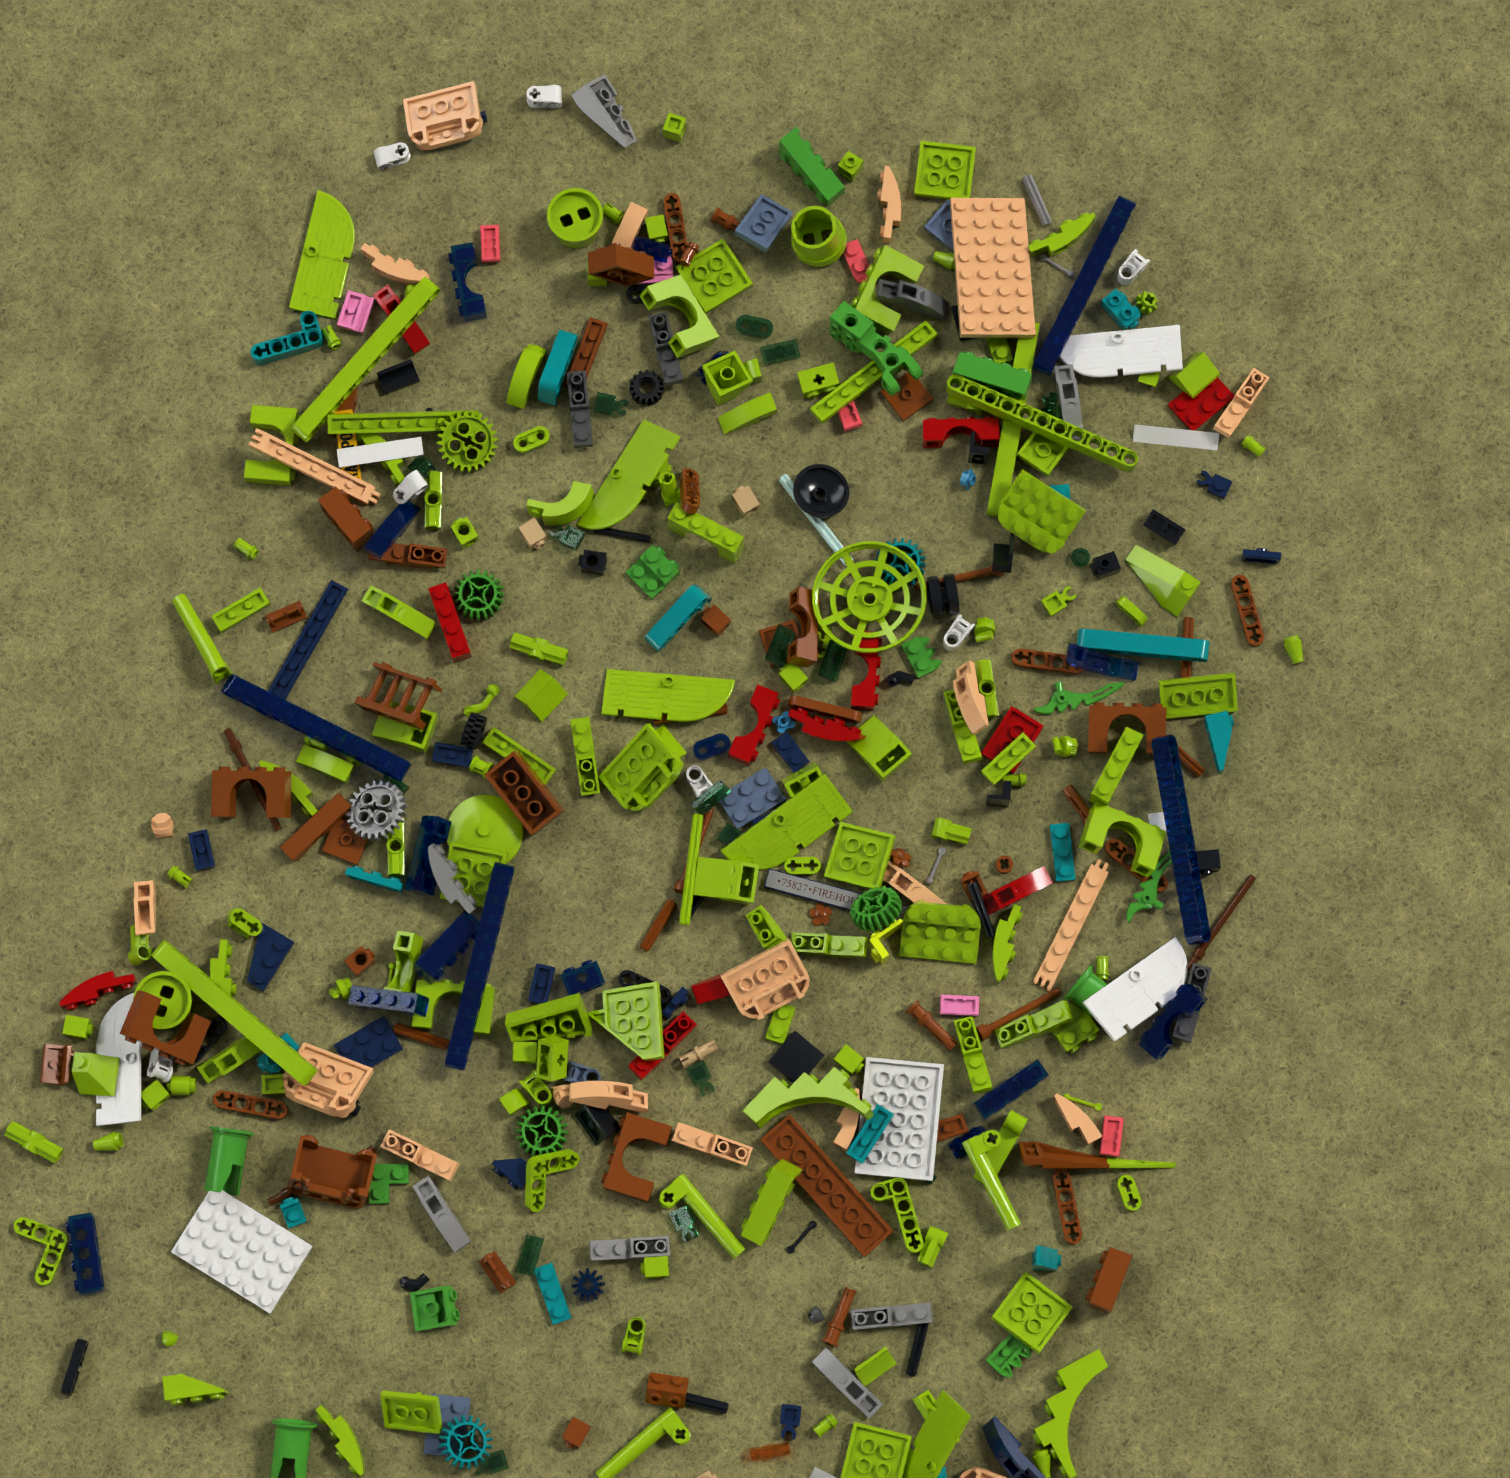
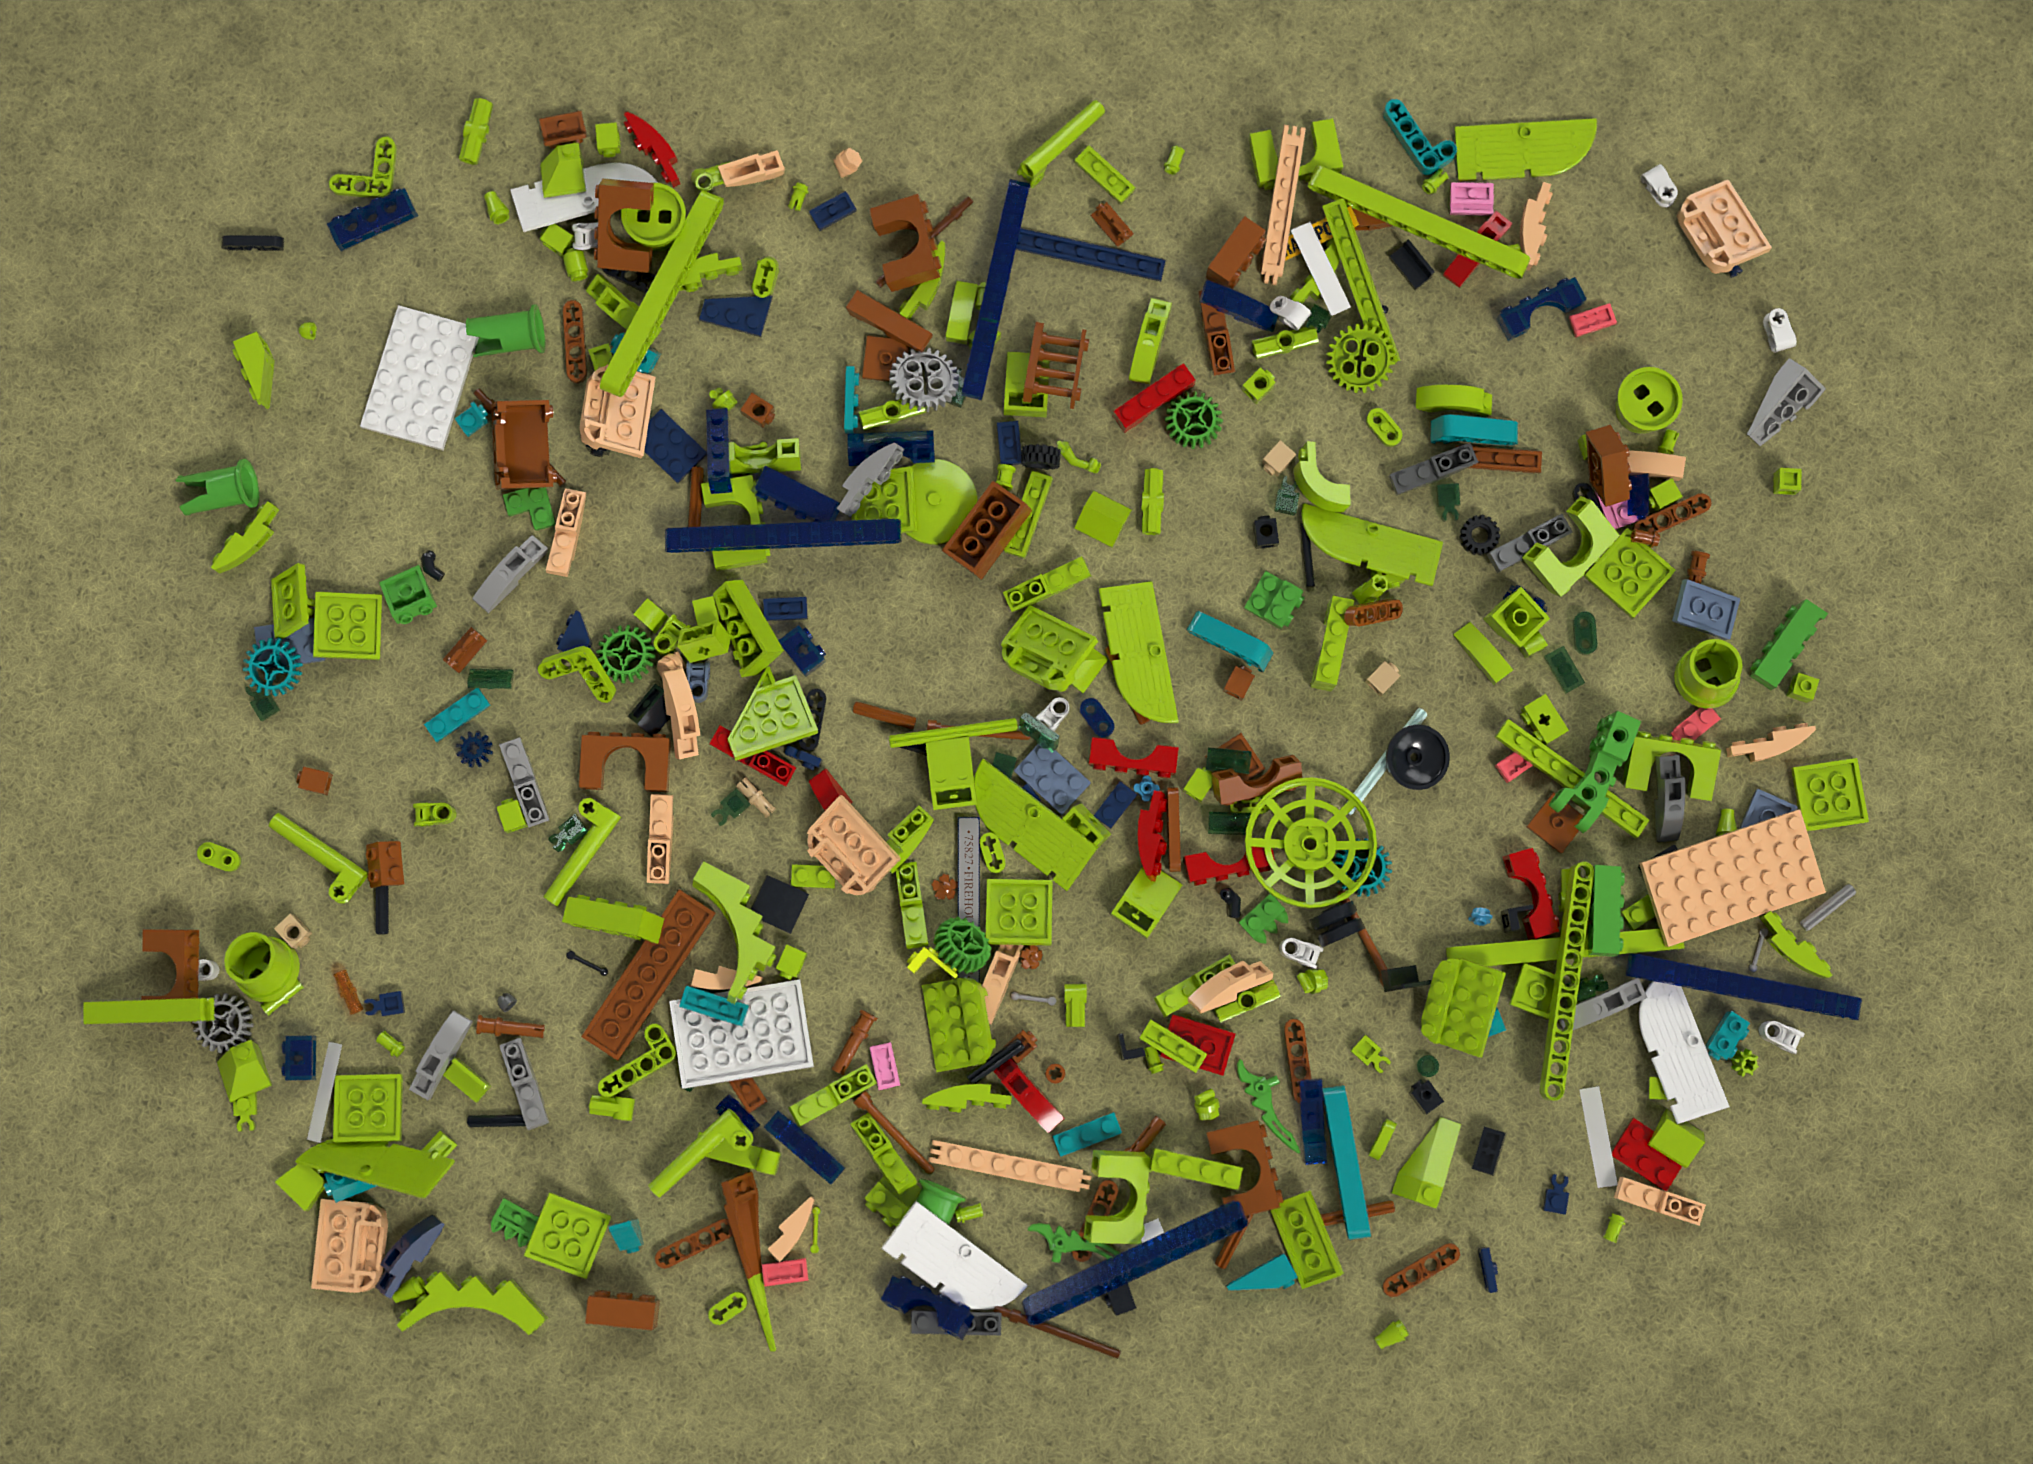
camera: 70 degrees right, 5 degrees up
(447, 1368) = (347, 626): none -> lime plate

